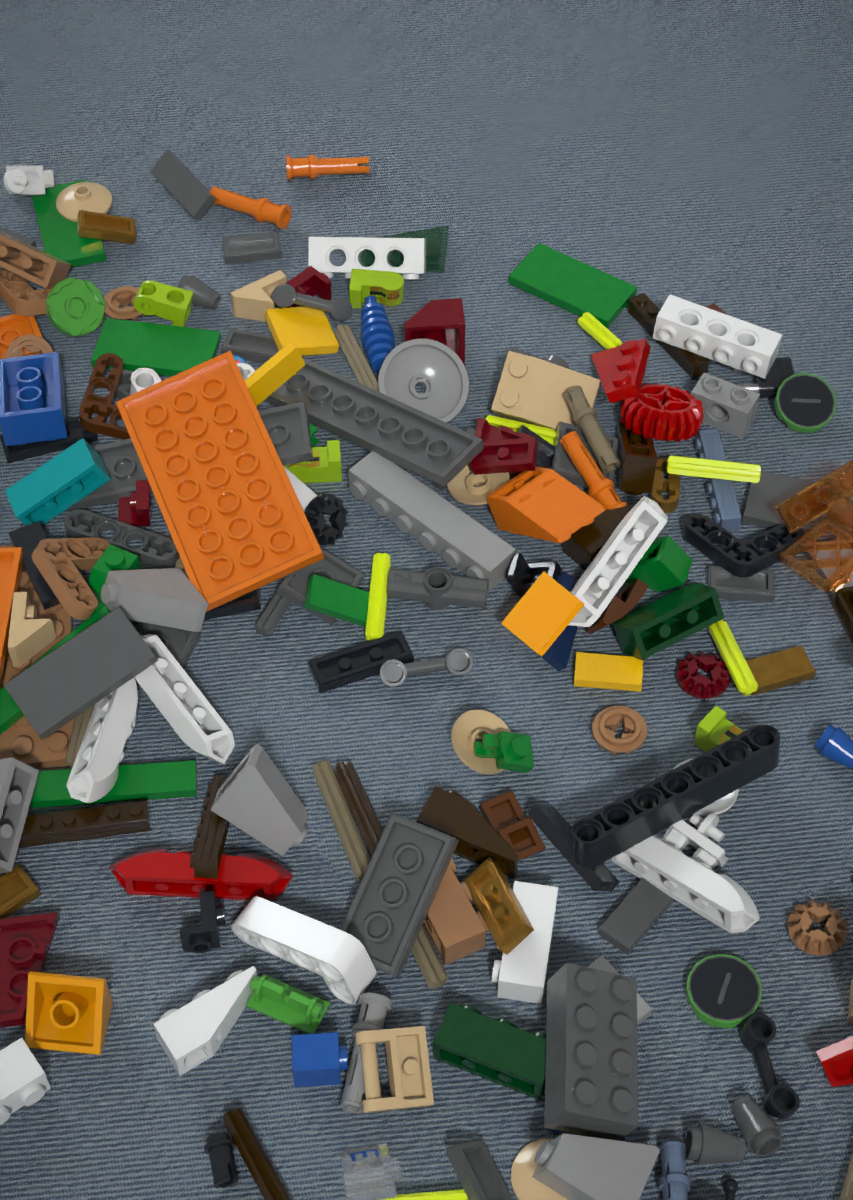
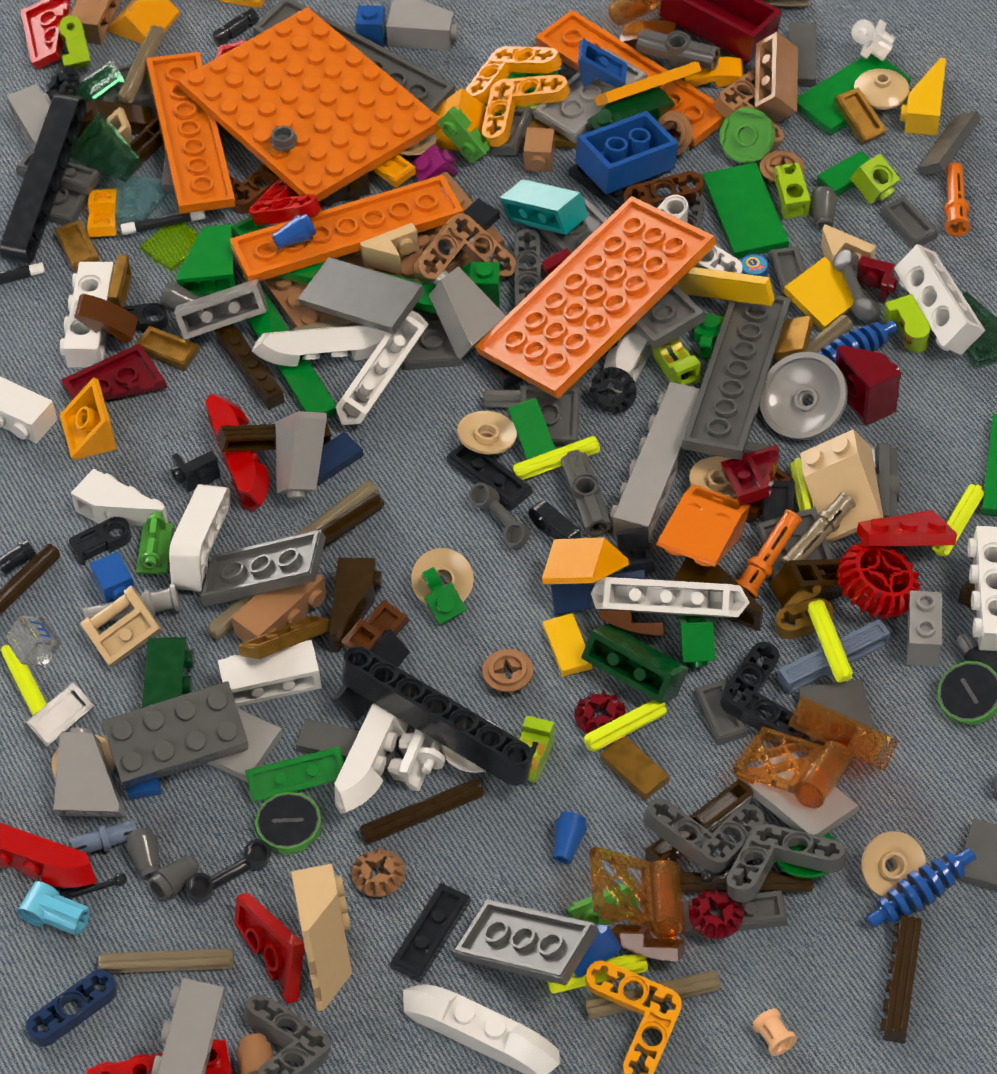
camera: 70 degrees right, 0 degrees up
(126, 180) = (924, 102): none -> yellow slope
(165, 262) = (839, 175): none -> green tile
(194, 243) = (877, 169): none -> lime brick
(244, 1061) = (97, 539): none -> black piece
(314, 640) = (487, 432): none -> tan dish
(347, 365) = (794, 337): none -> pearl gold tile
(462, 626) = (552, 522): none -> black piece
(668, 961) = (295, 773): none -> green tile
(758, 863) = (421, 811): none -> dark brown axle

